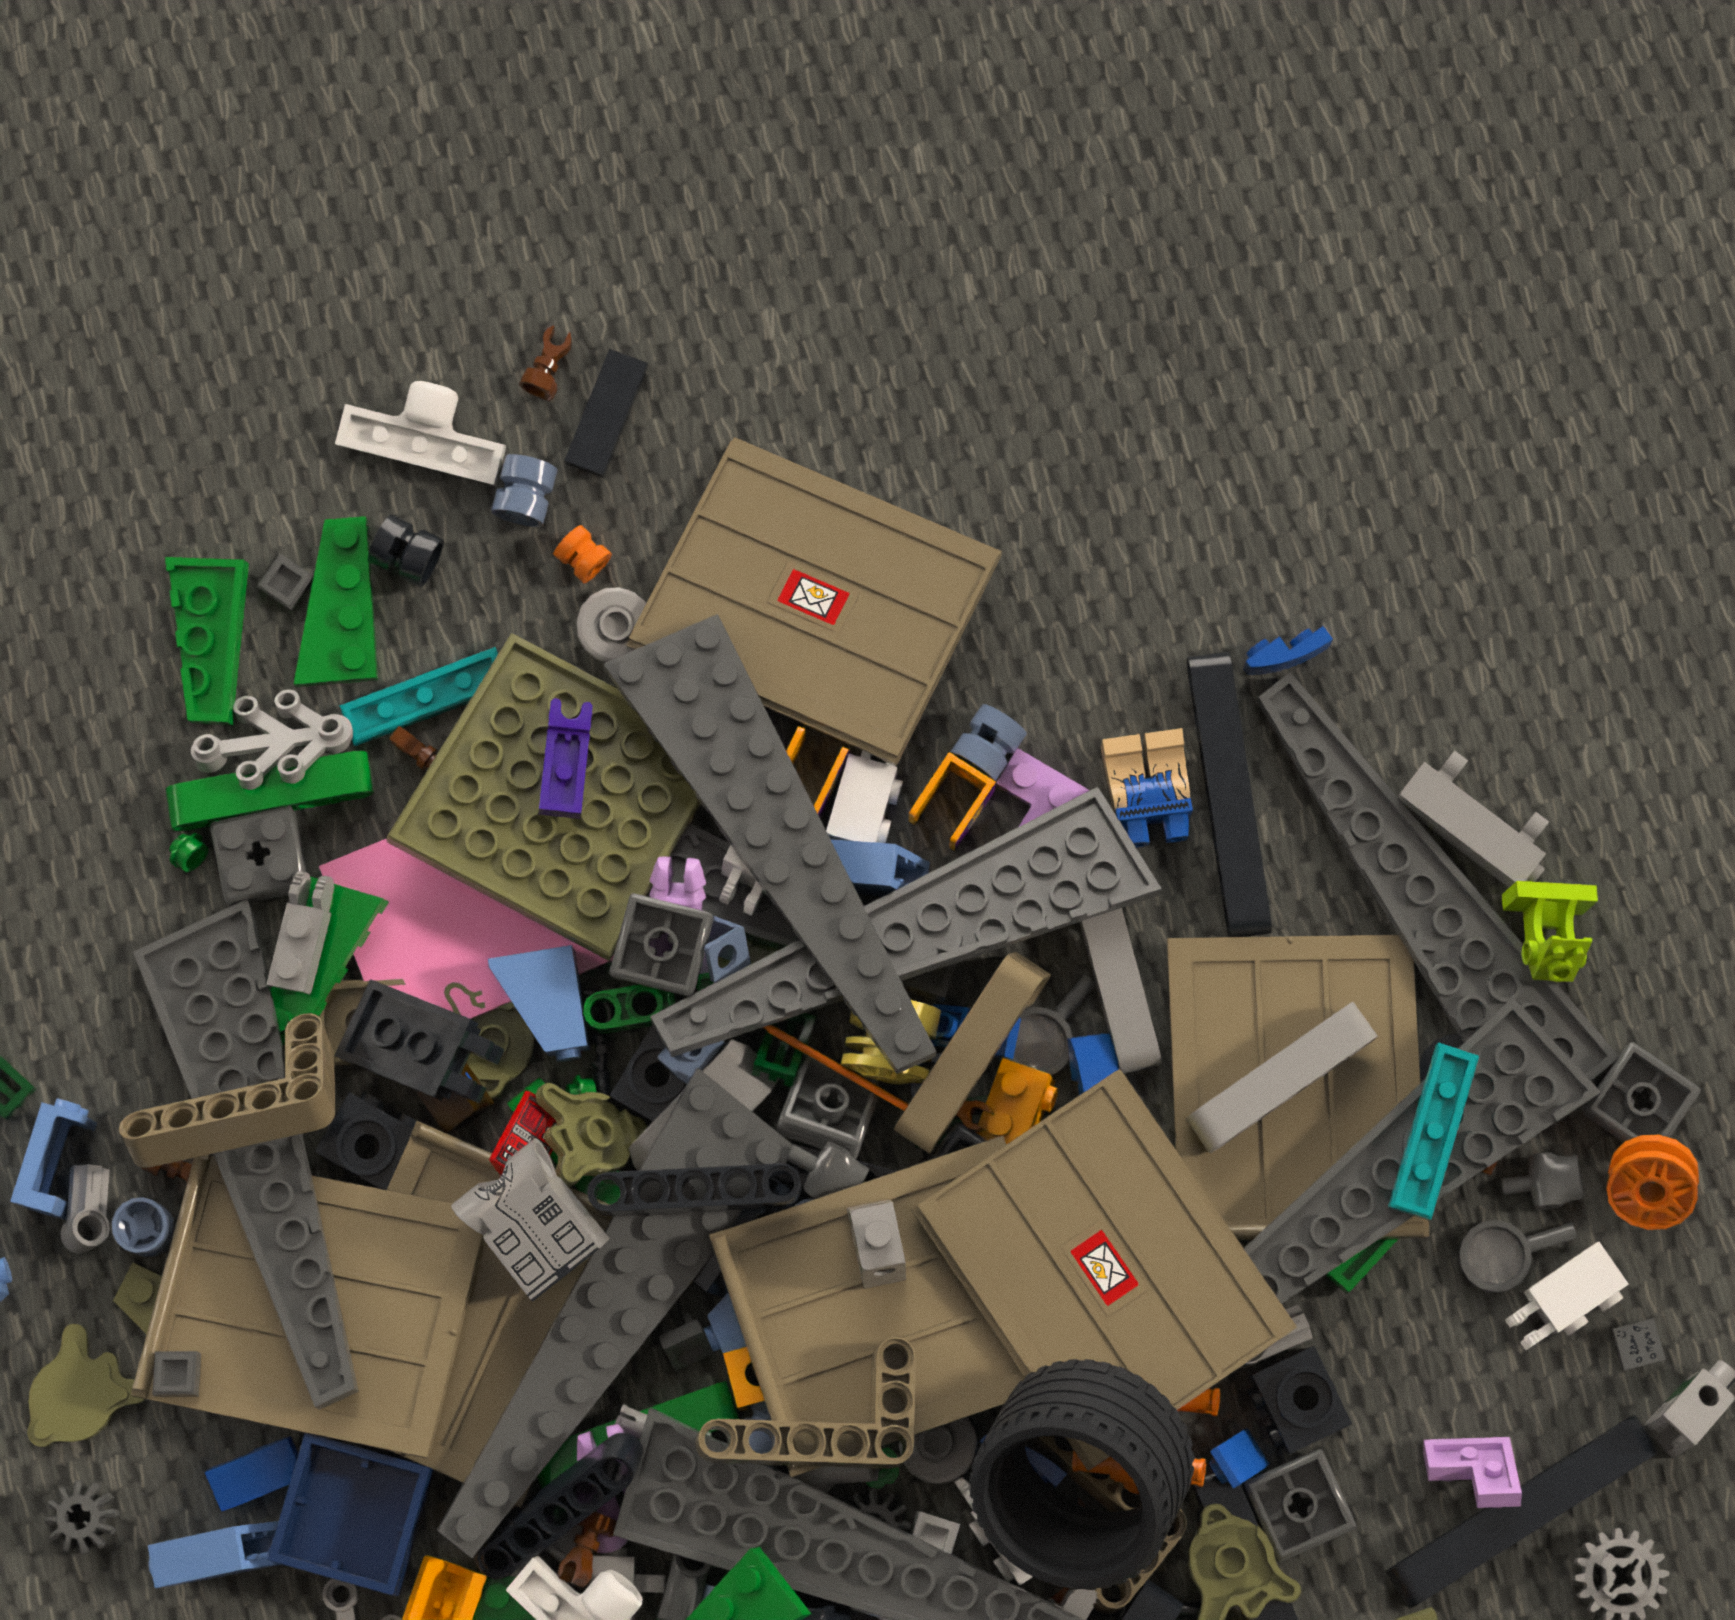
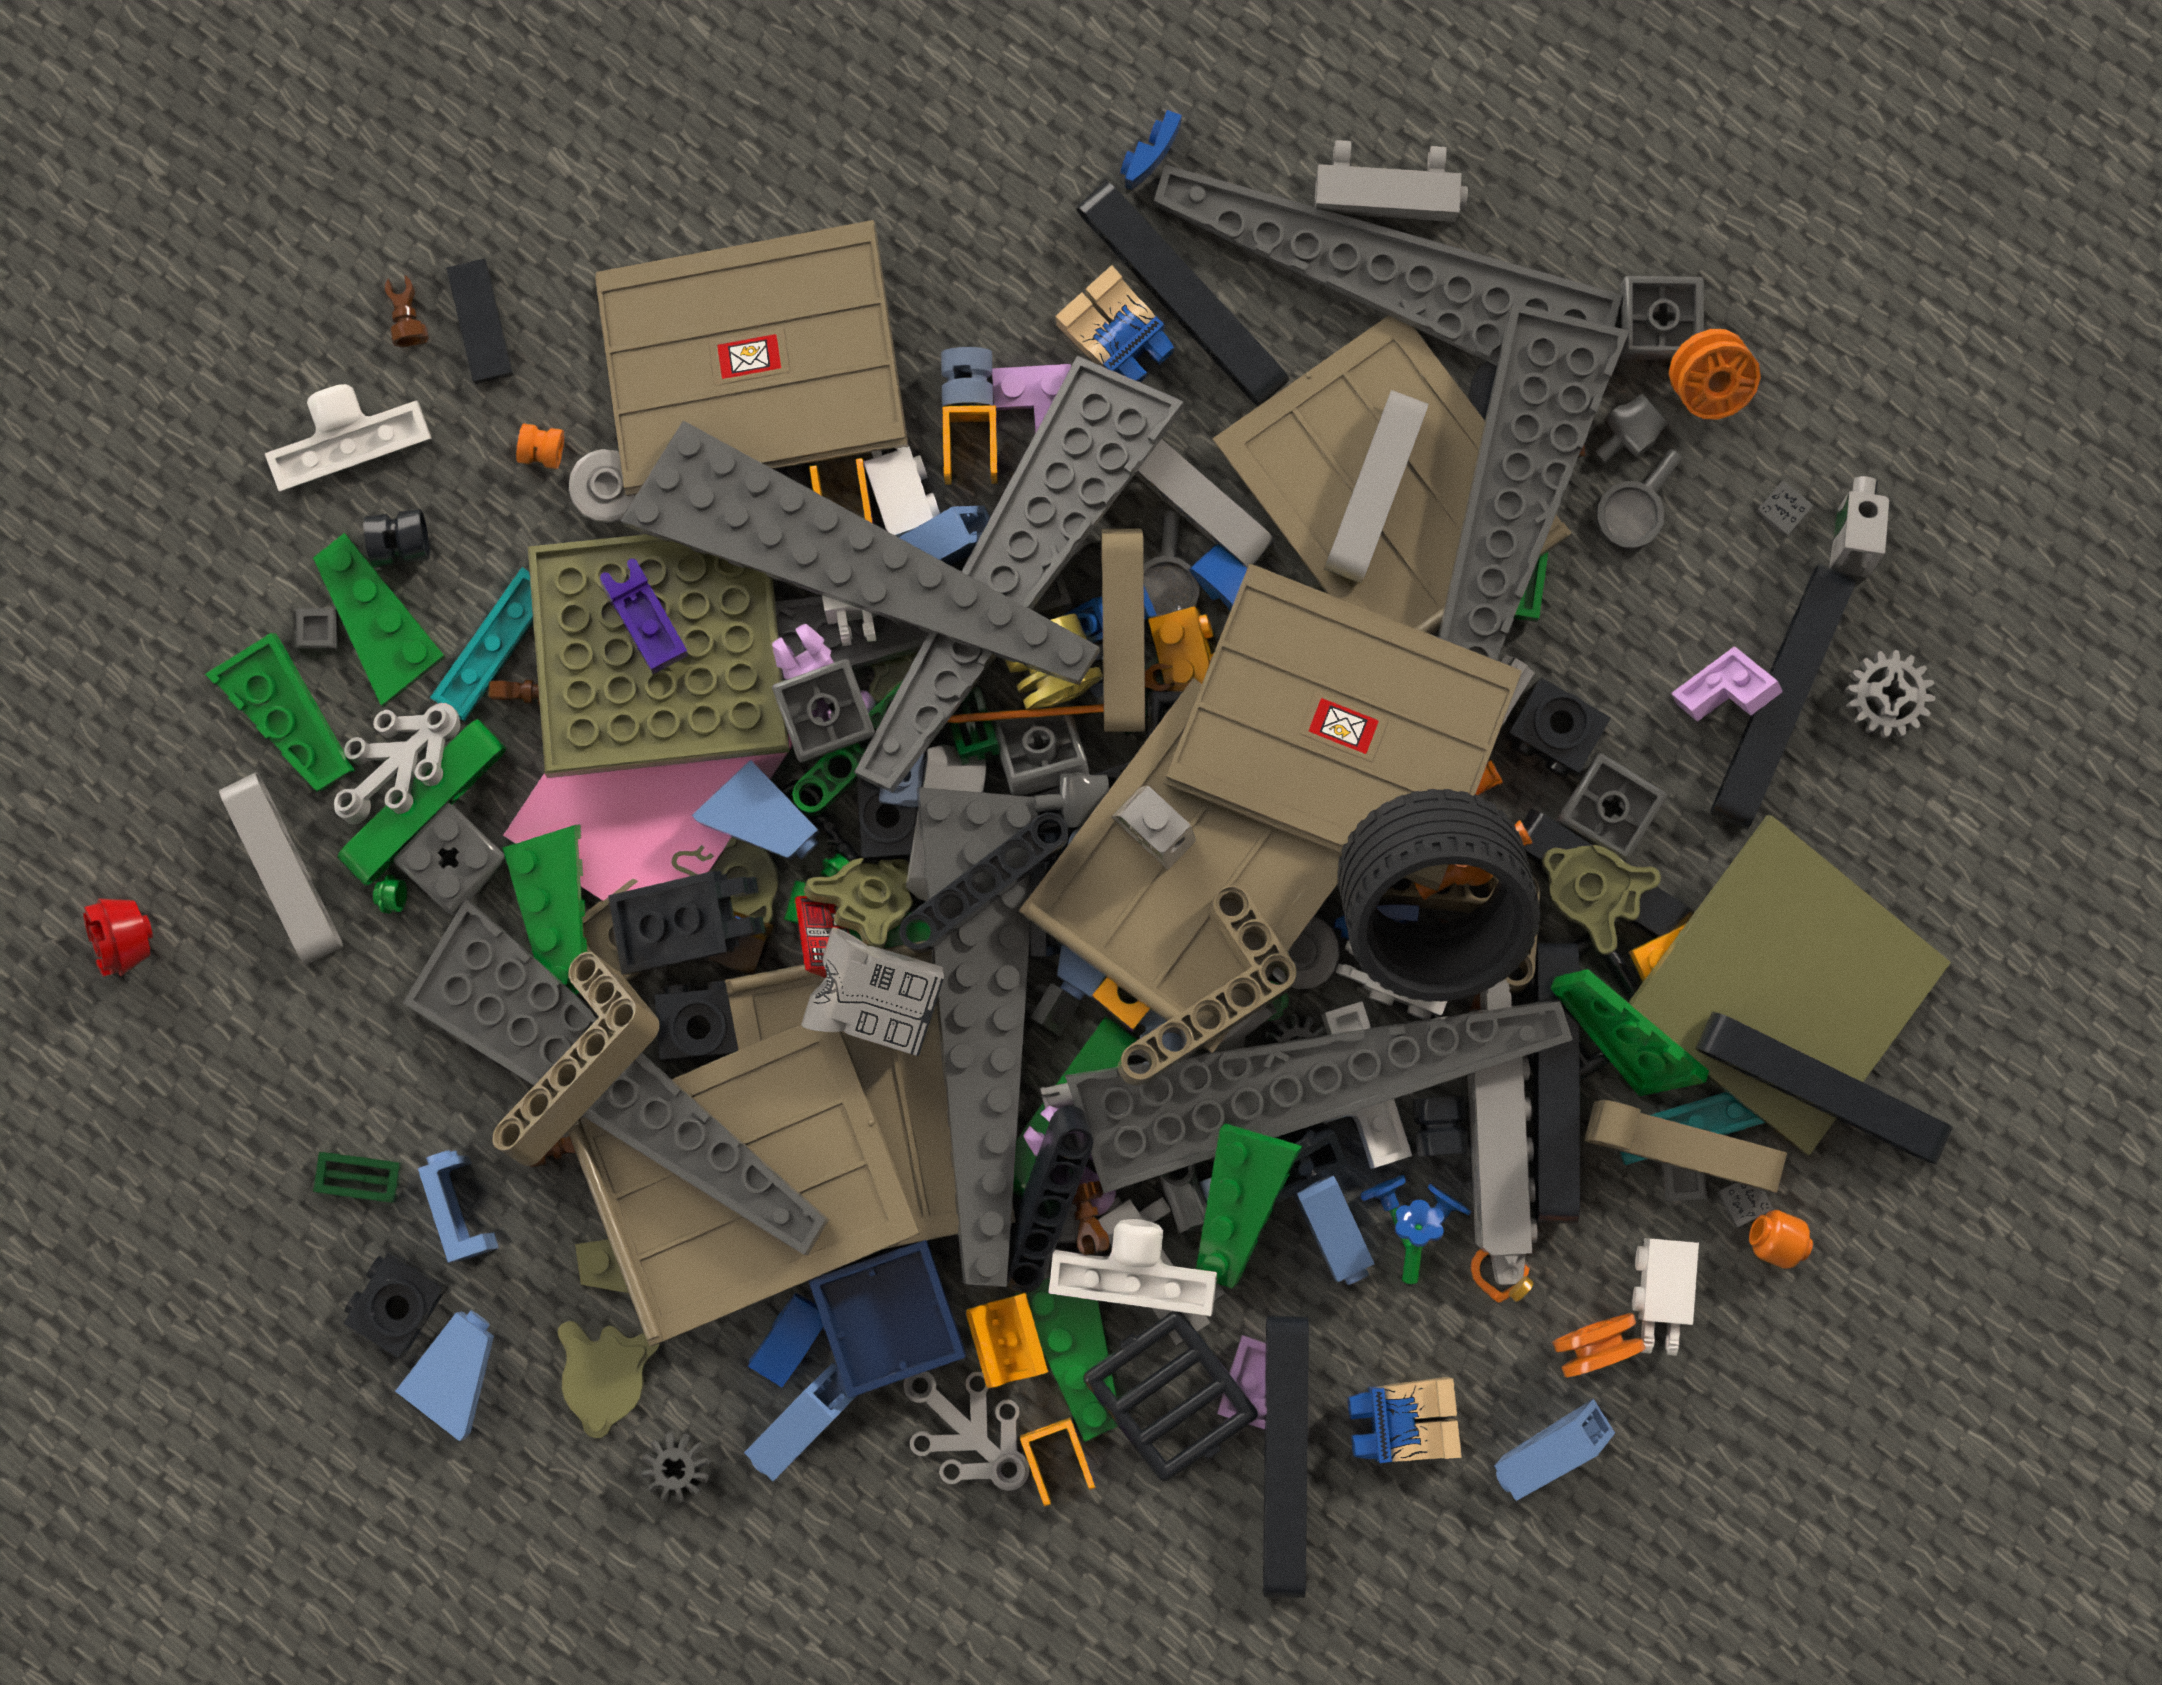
camera: 40 degrees left, 5 degrees up
(88, 1205) = (508, 1224): light grey piece -> none
(111, 766) = (280, 868): none -> light grey beam
(143, 1227) = (565, 1211): sand blue wheel -> none
(176, 1374) = (674, 1305): dark grey tile -> none
(301, 935) = (530, 898): light grey hinge -> none
(524, 490) = (457, 423): sand blue wheel -> none
(728, 942) = (875, 673): sand blue bracket -> none
(1238, 1459) = (1542, 804): blue slope -> none
(1433, 1131) = (1523, 448): teal tile -> none
(1551, 907) = (1492, 214): lime tile -> none
(1570, 1293) = (1708, 504): white hinge -> none

